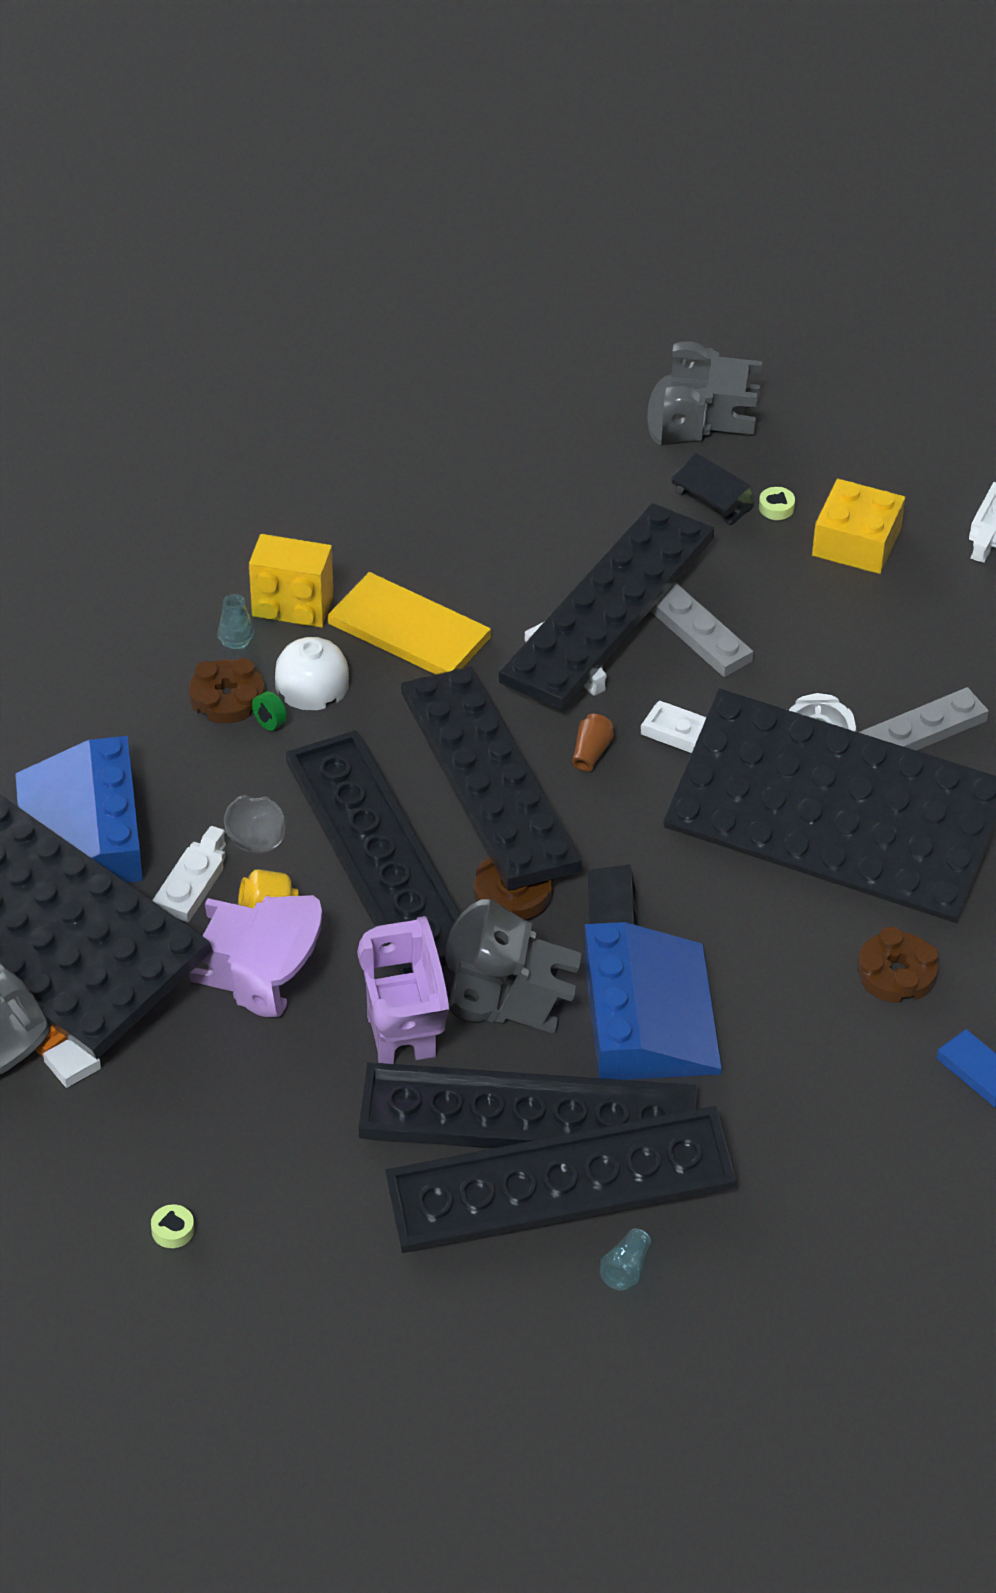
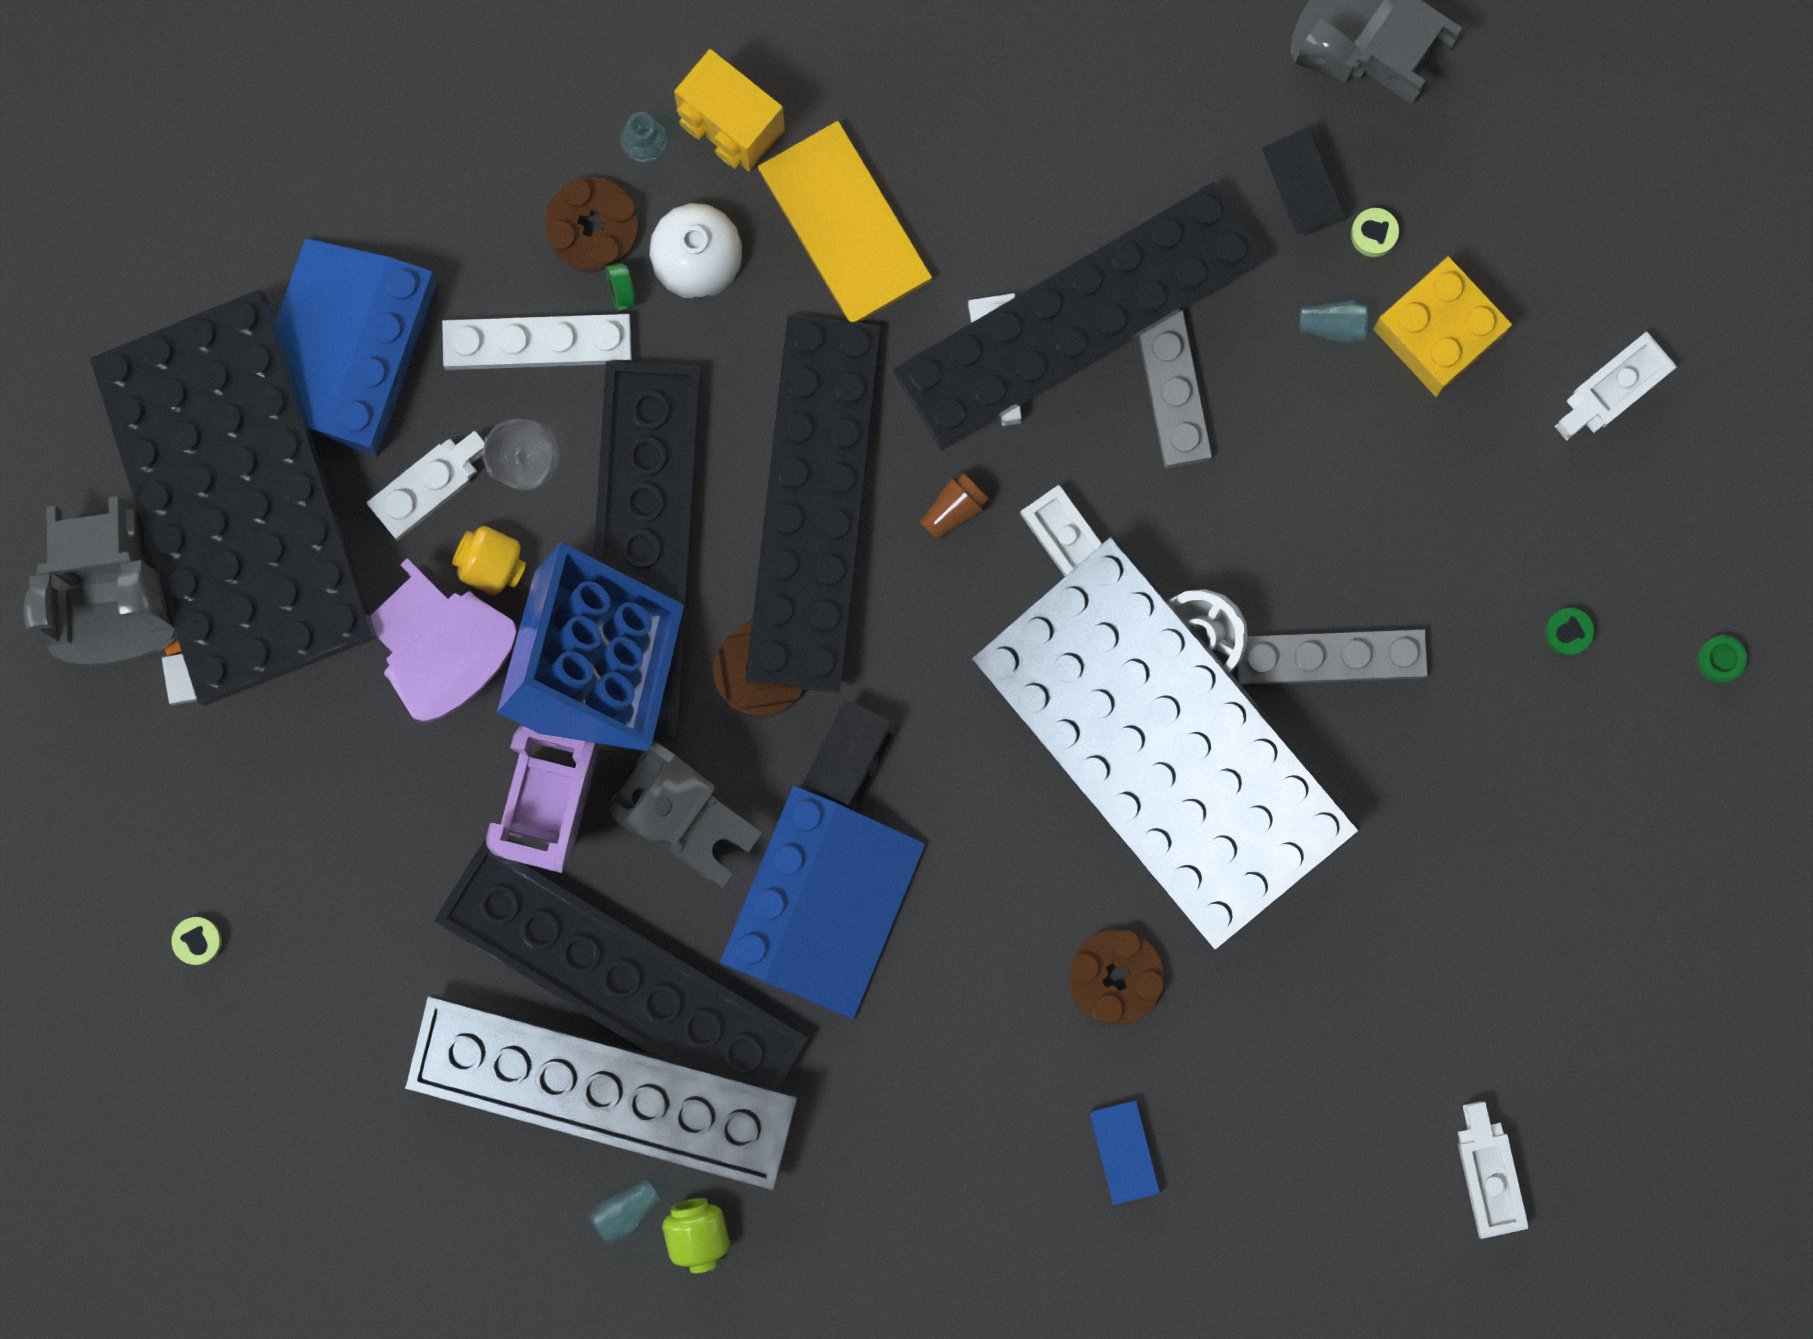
camera: 25 degrees right, 35 degrees up
(222, 769) = (536, 341): none -> white plate
(380, 885) = (590, 653): none -> blue slope
(693, 1246) = (696, 1235): none -> lime head
(787, 551) = (1336, 321): none -> clear light blue cone

